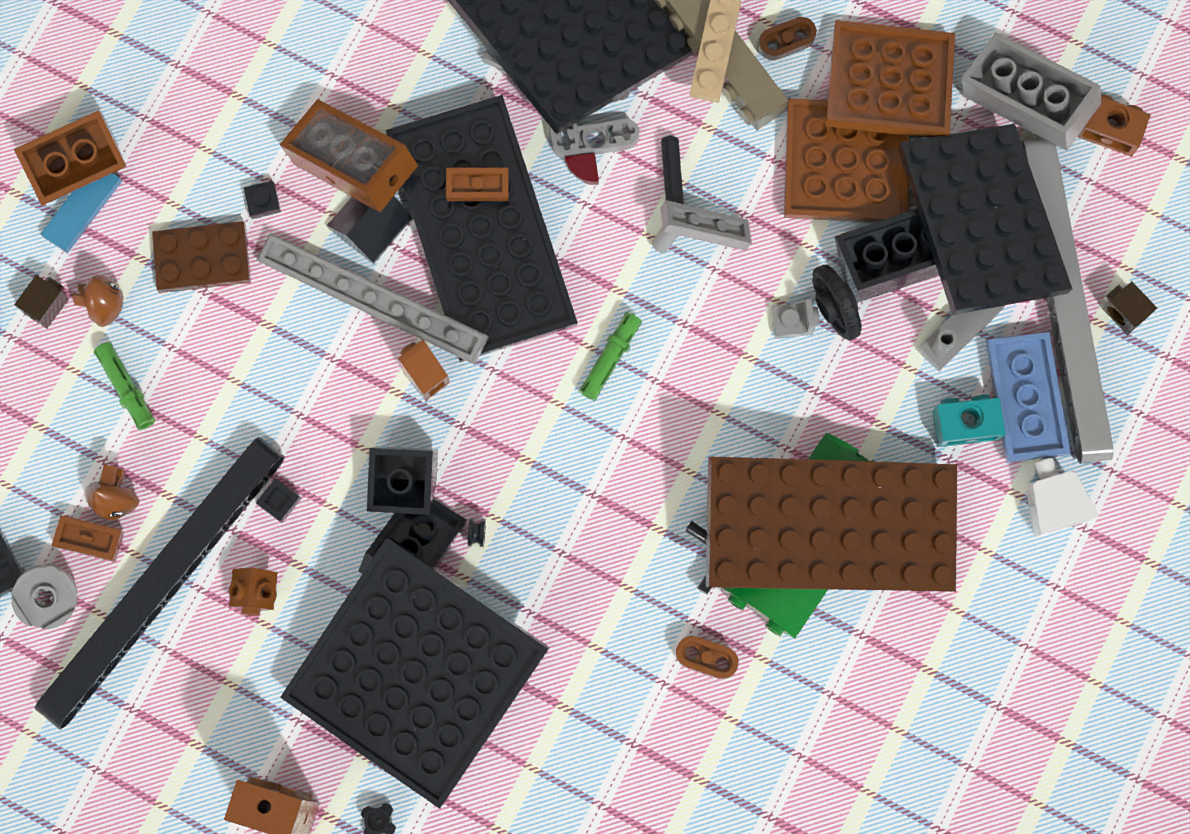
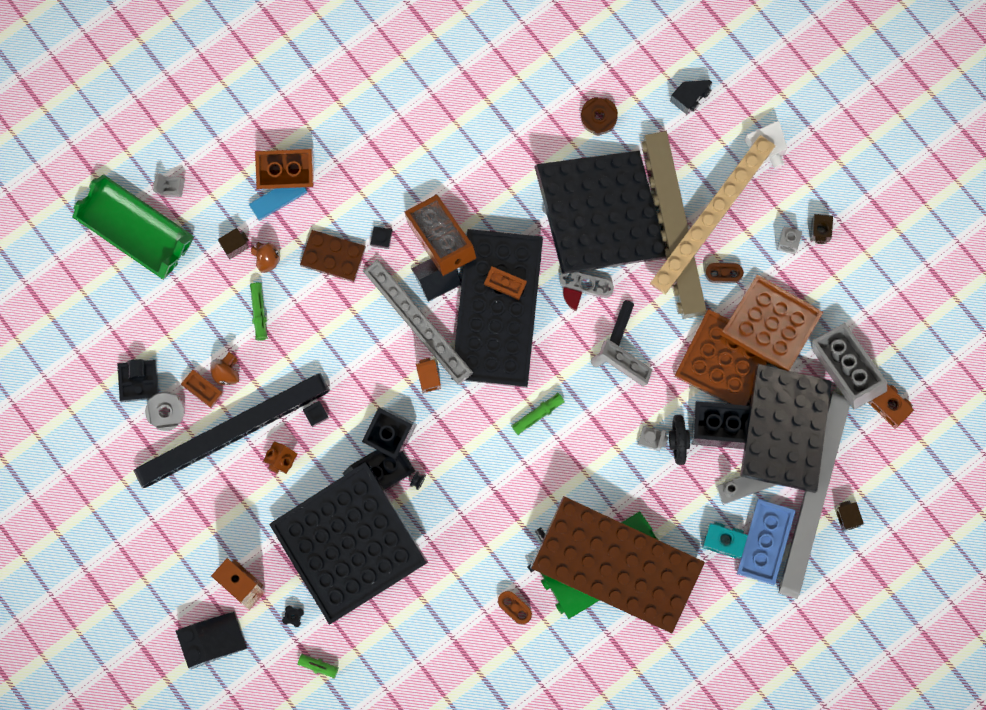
camera: 25 degrees right, 0 degrees up
(1057, 500) = (755, 608): white torso -> none

